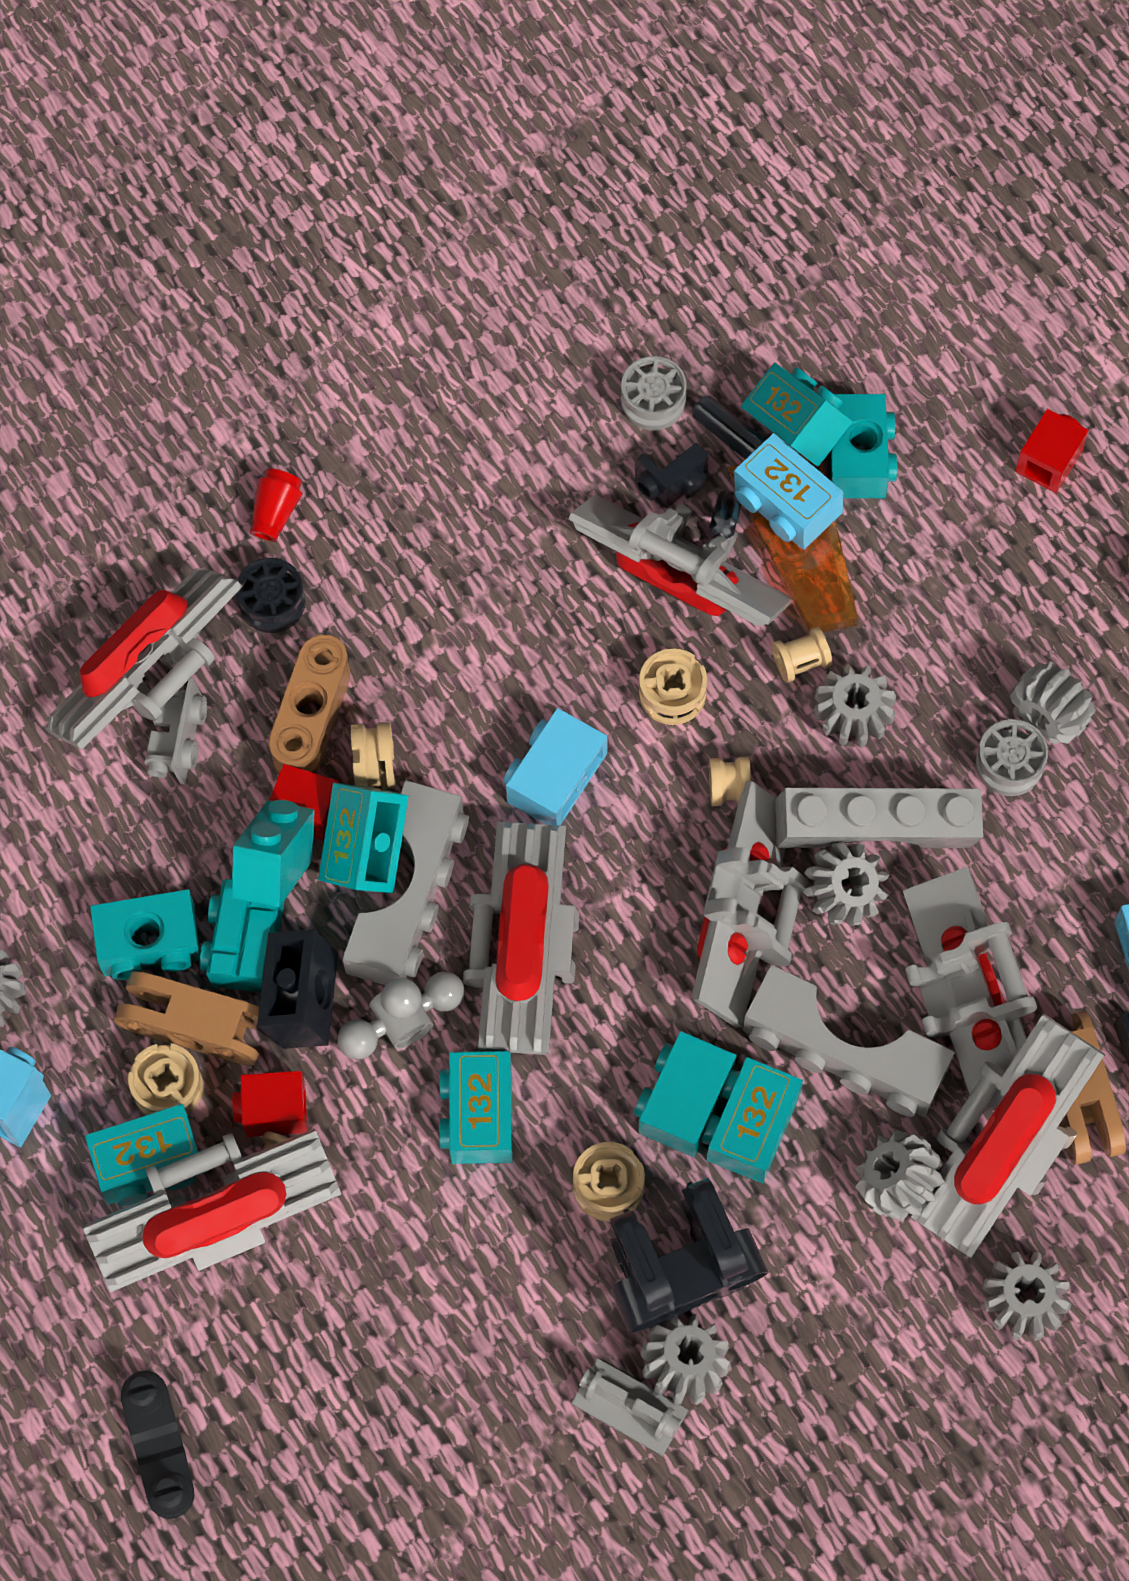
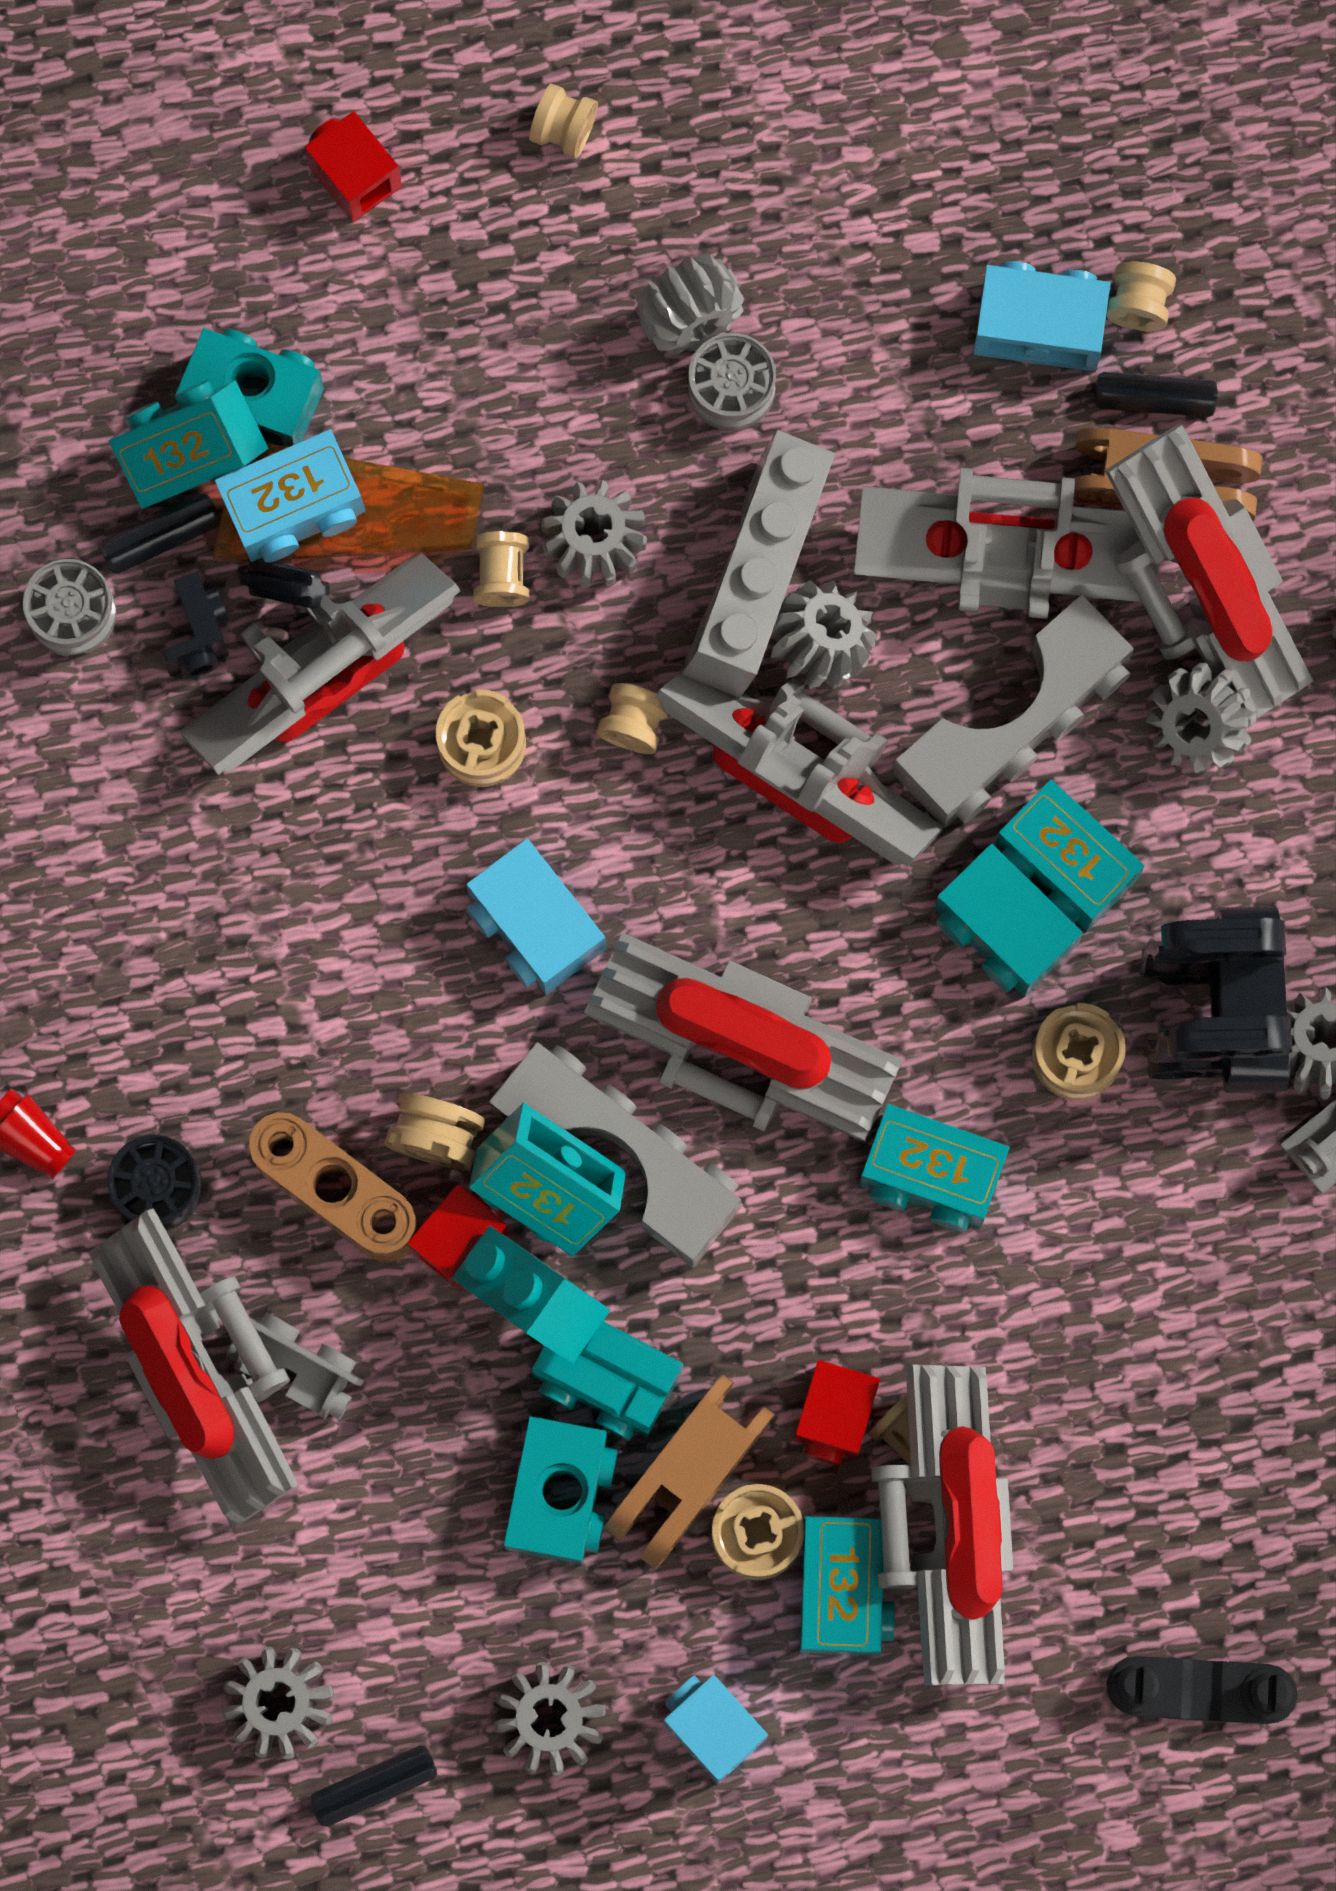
camera: 70 degrees left, 10 degrees up
(298, 989) = (707, 1328): black brick -> none
(401, 1014) = (781, 1219): light grey piece -> none

